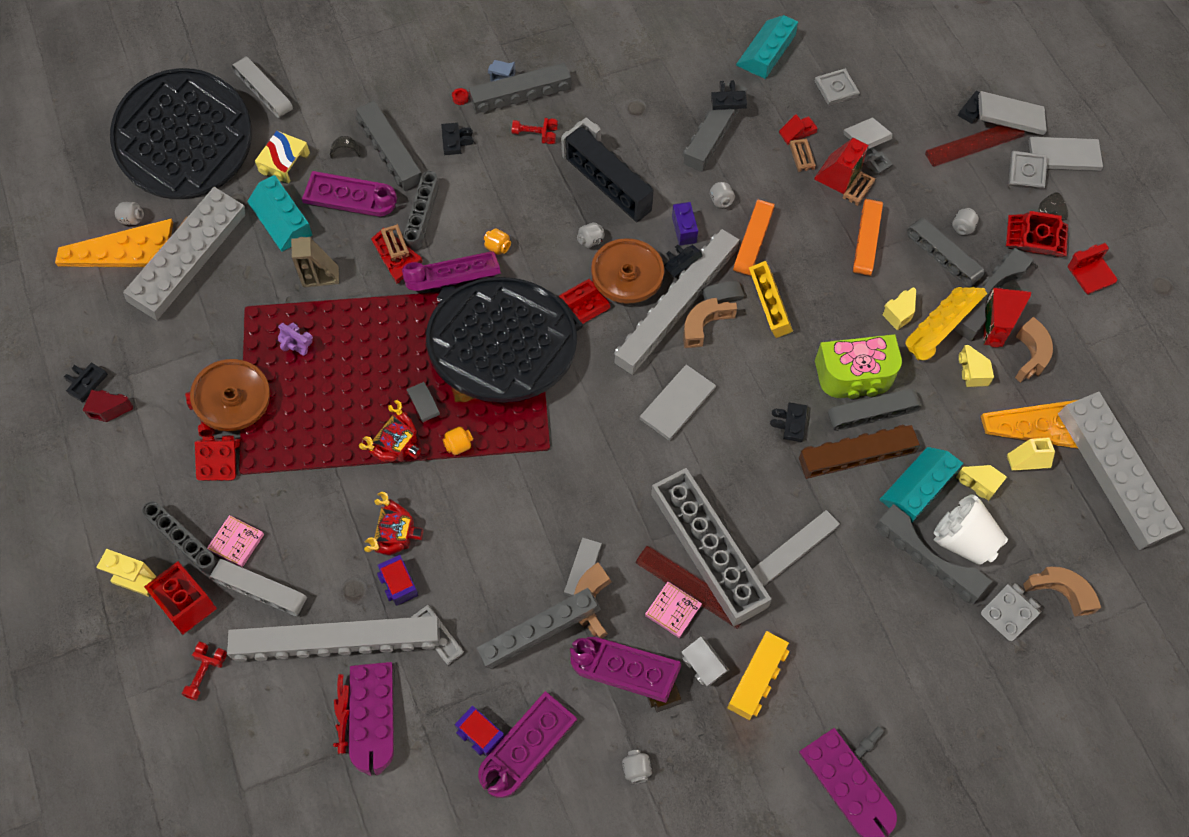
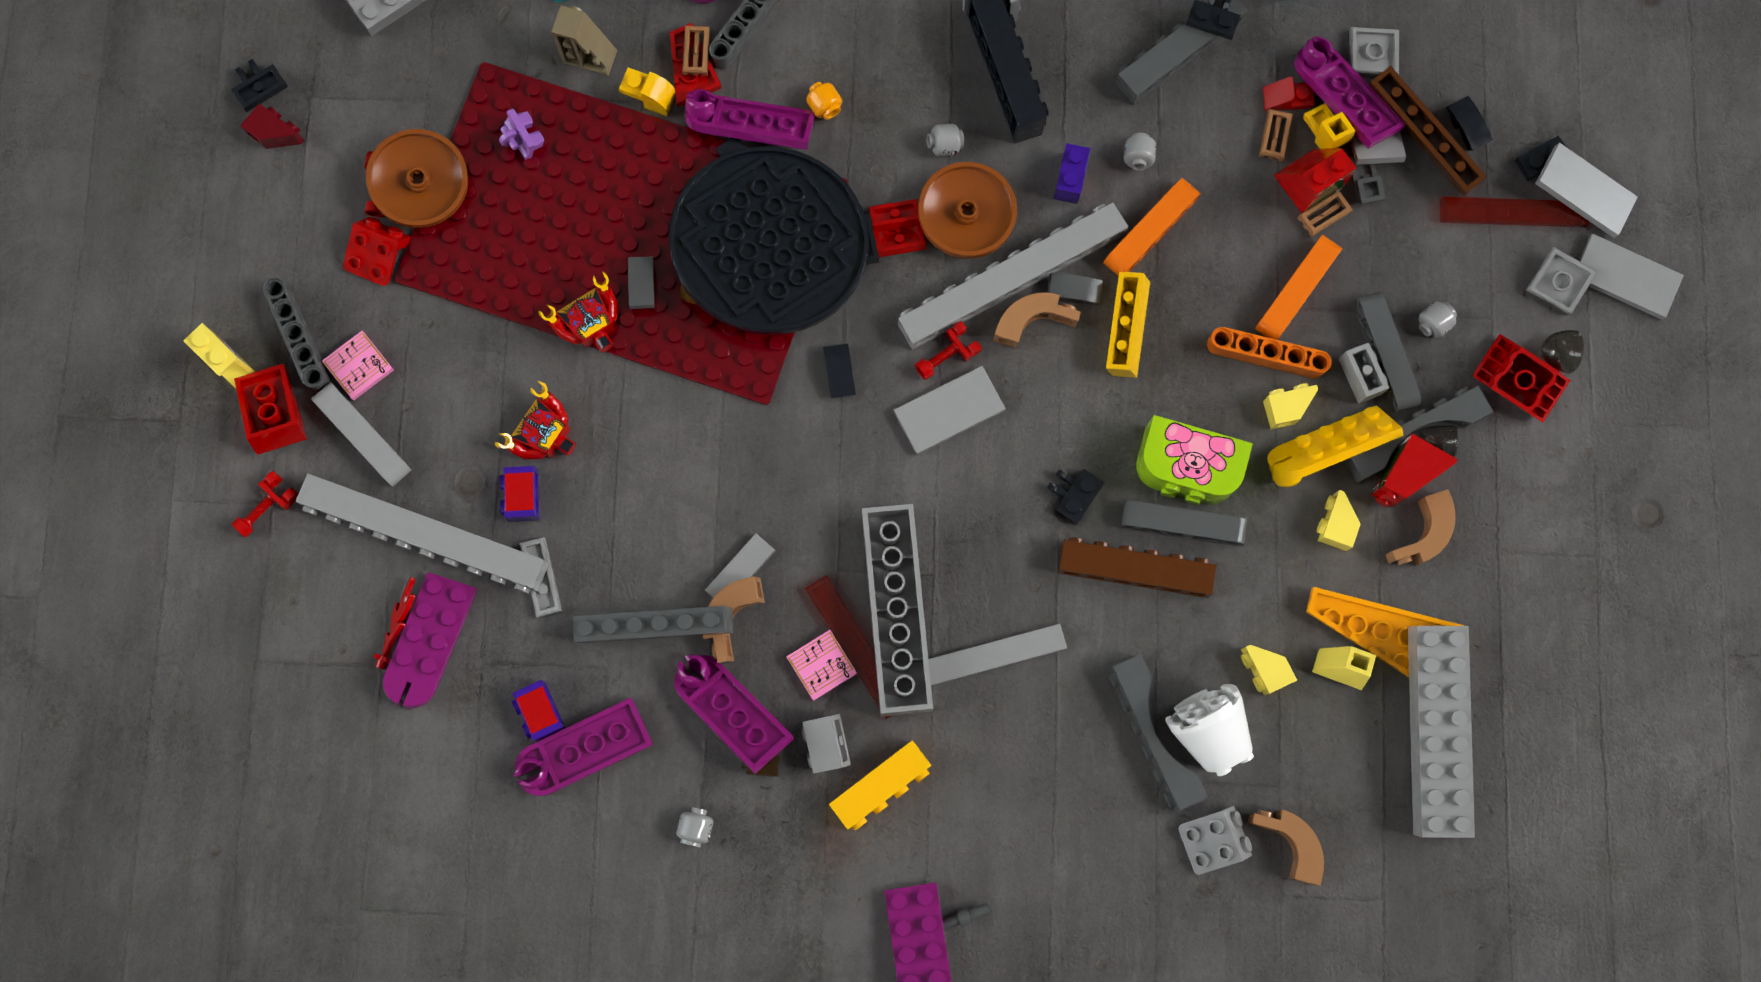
camera: 20 degrees right, 15 degrees up
(375, 276) = (650, 88): none -> yellow brick
(457, 440) = (660, 351): light orange head -> none
(589, 405) = (839, 370): none -> black slope
(648, 381) = (926, 367): none -> red bar
(682, 260) = (1043, 225): black hinge -> none
(833, 112) = (1346, 92): none -> magenta plate
(834, 136) = (1329, 129): none -> yellow brick
(862, 282) = (1280, 349): none -> orange beam
(897, 115) = (1428, 132): none -> reddish brown brick
(914, 100) = (1470, 122): none -> black slope
(922, 481) = (1191, 640): teal slope -> none
(938, 269) = (1363, 373): none -> light grey brick
(1091, 269) = (1565, 455): red bracket -> none

